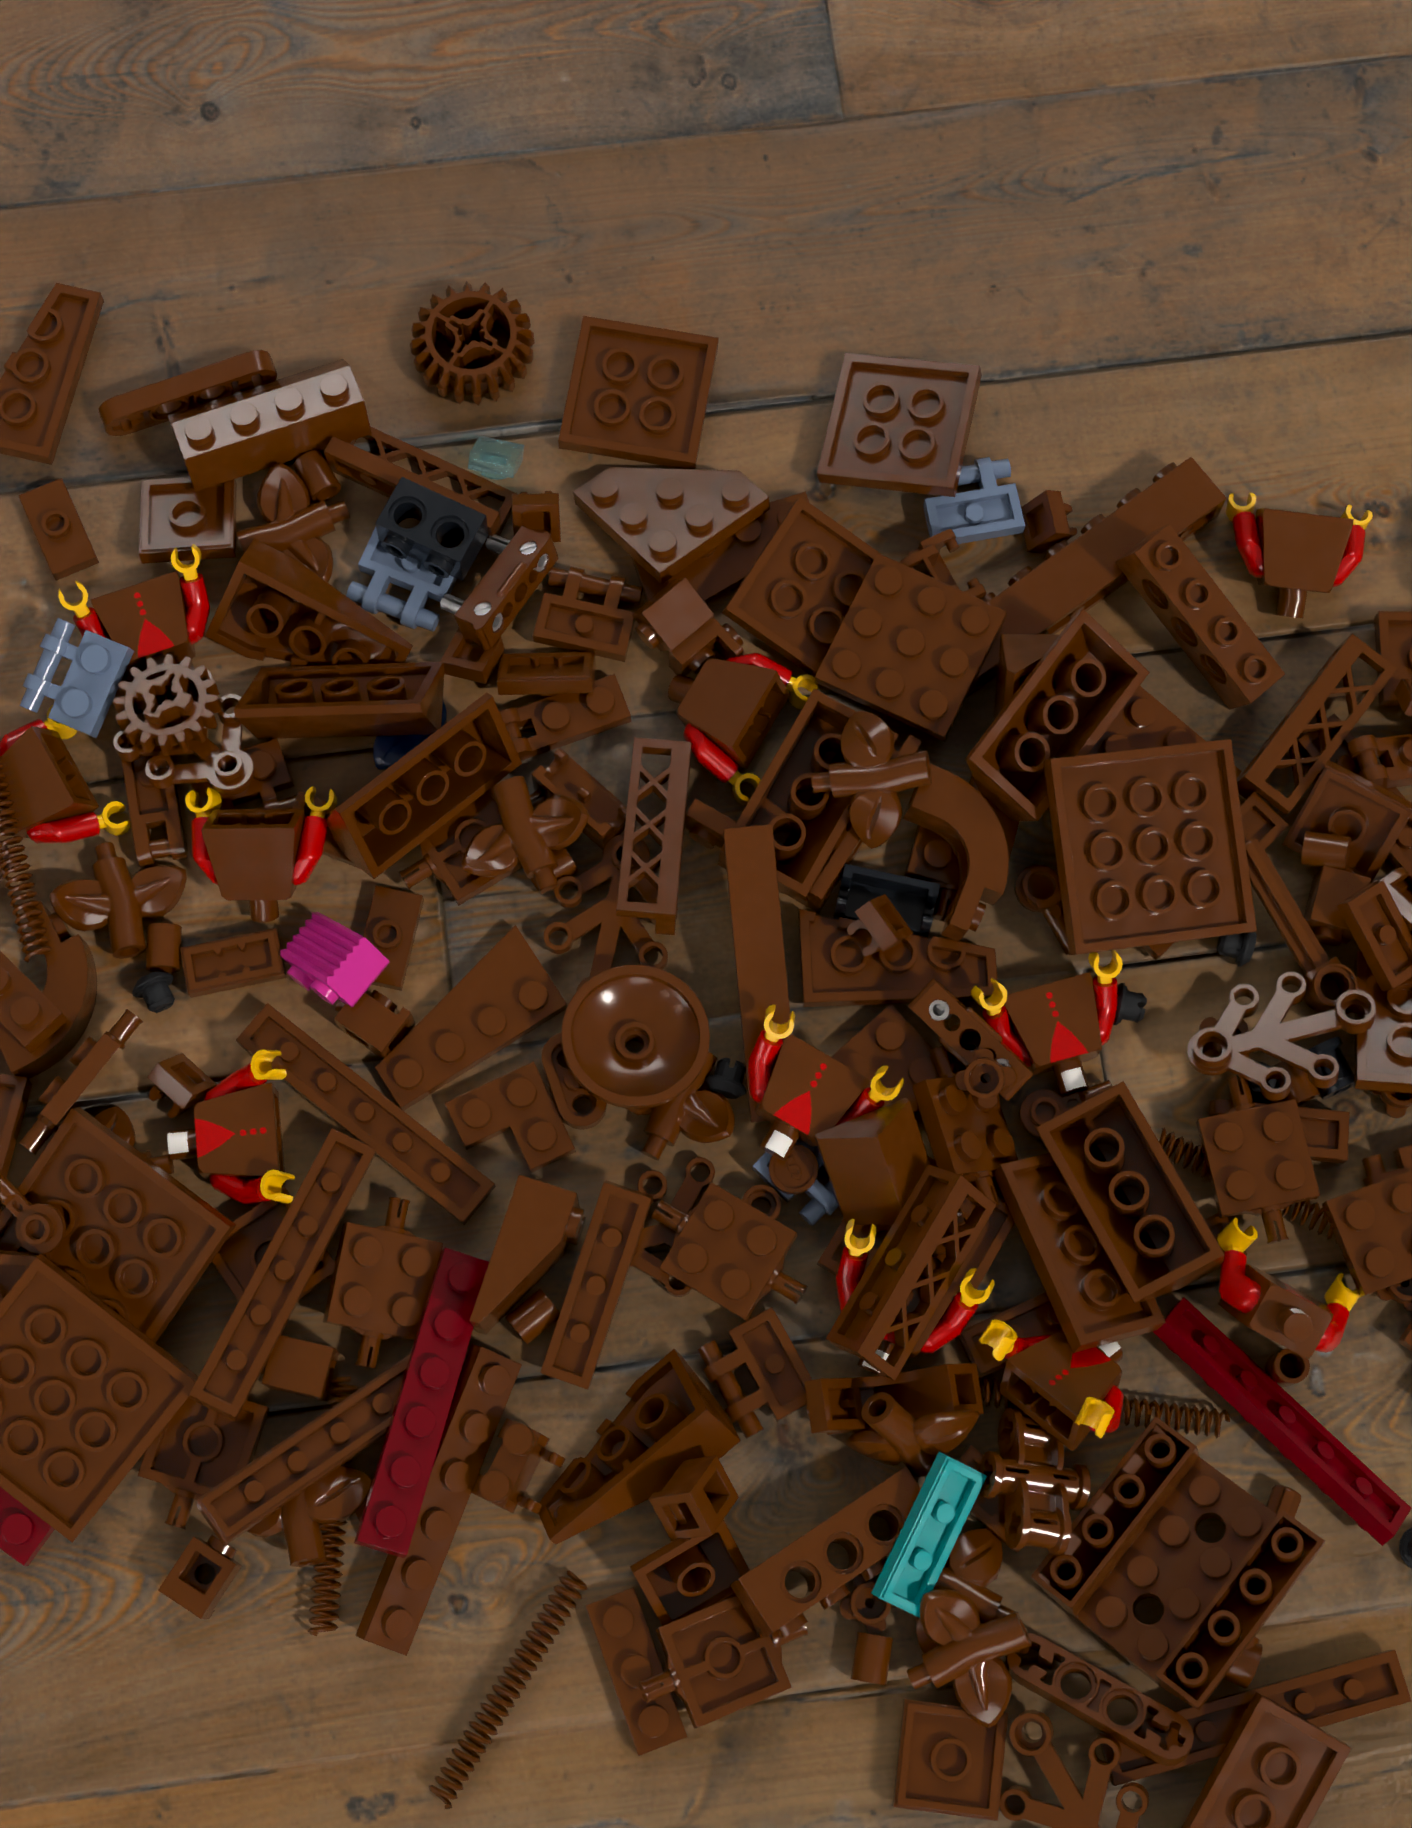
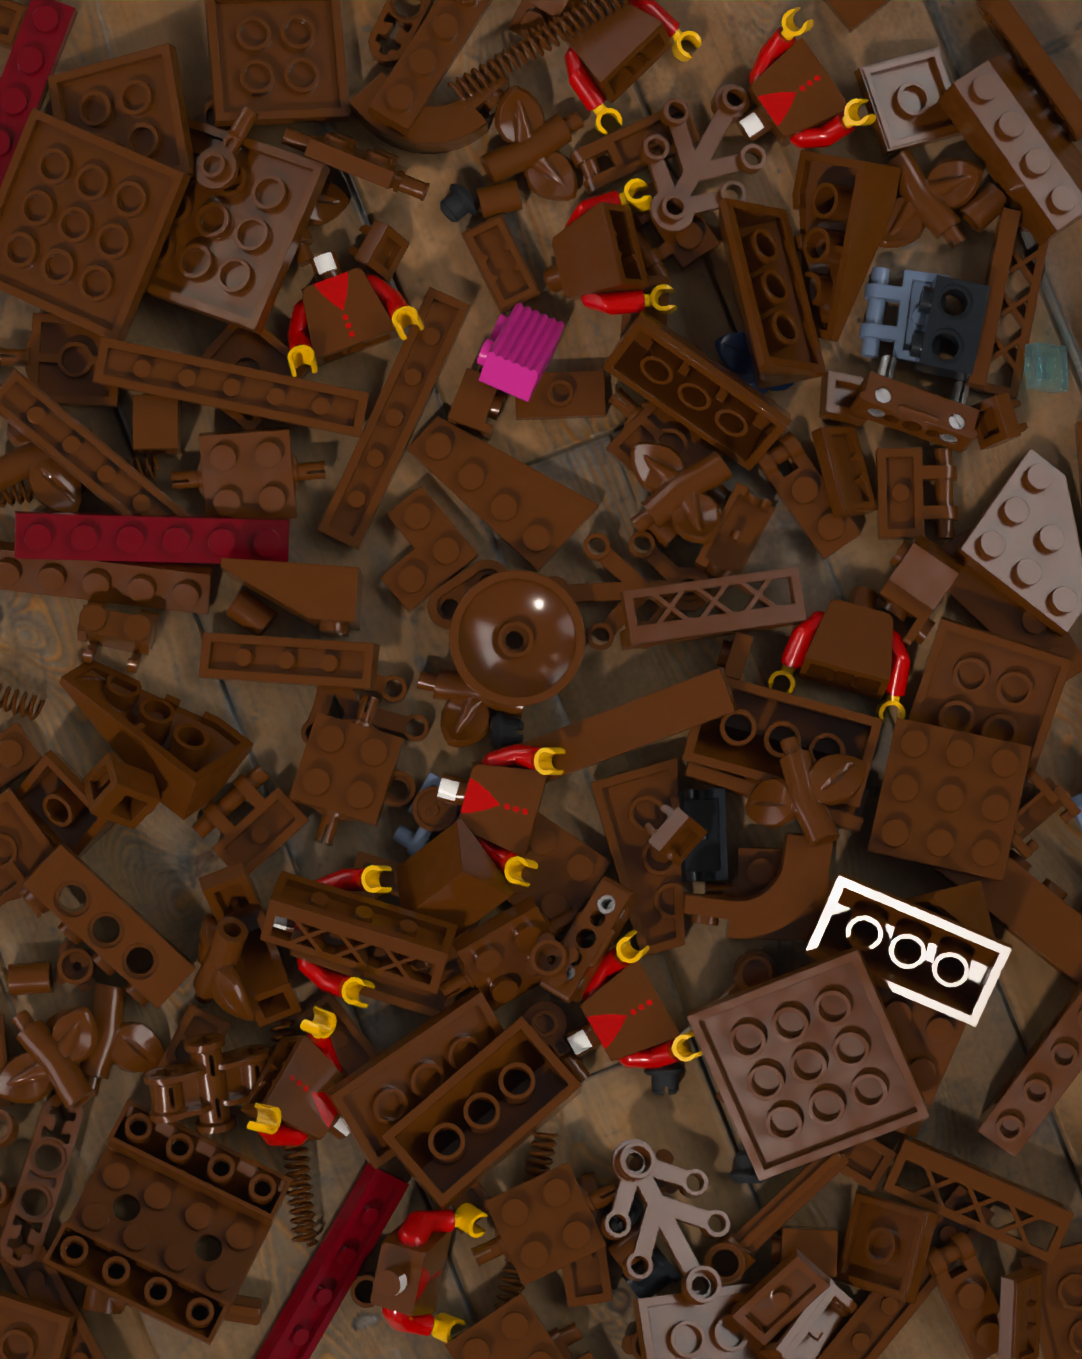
camera: 80 degrees right, 10 degrees up
(89, 683) = (723, 61): sand blue plate -> none
(167, 705) = (733, 127): reddish brown gear -> none
(929, 1533) = (141, 1001): teal tile -> none
(1326, 850) = (853, 1230): reddish brown hinge -> none

